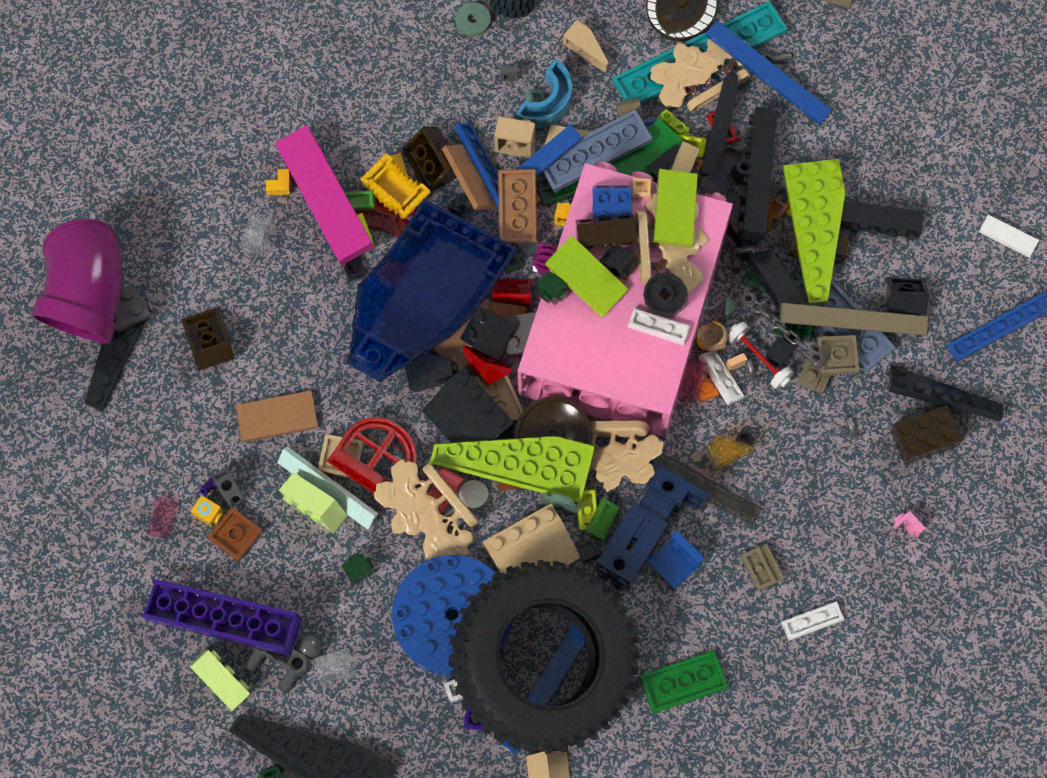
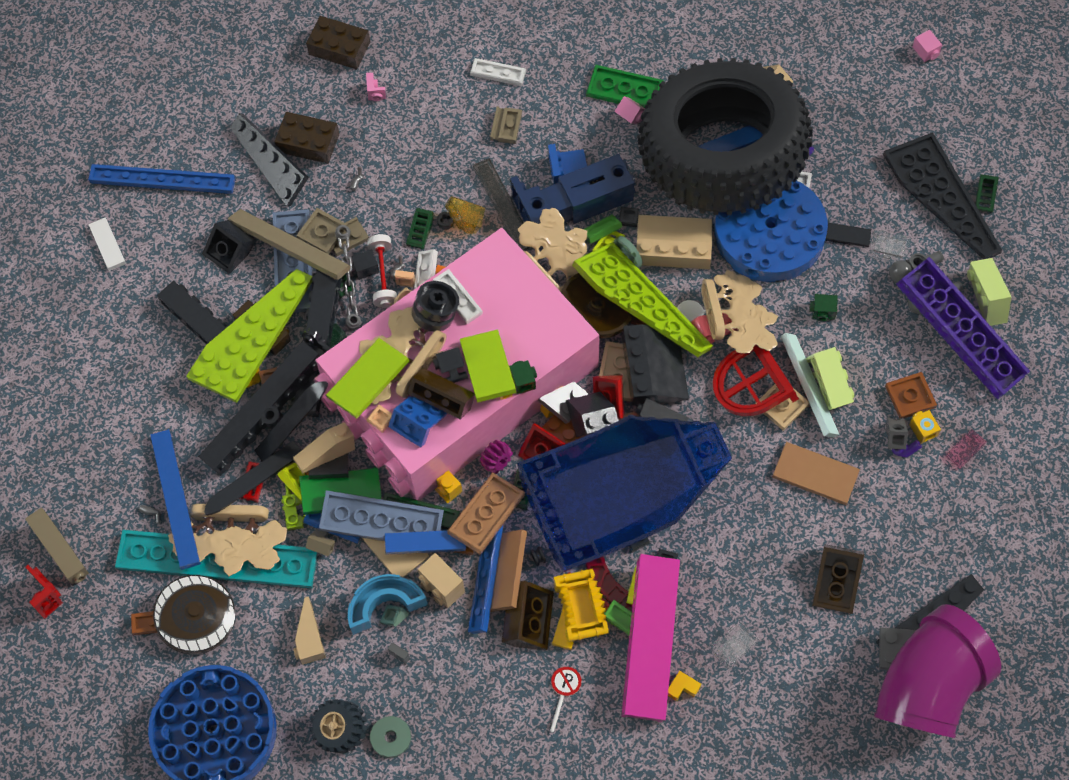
camera: 145 degrees left, 5 degrees down
(371, 134) = (565, 682): none -> piece
(381, 660) = (848, 235): none -> black tile
(658, 653) = (630, 110): none -> bright pink brick
(760, 433) = (422, 217): none -> dark green slope
(979, 548) = (338, 42): none -> dark brown brick

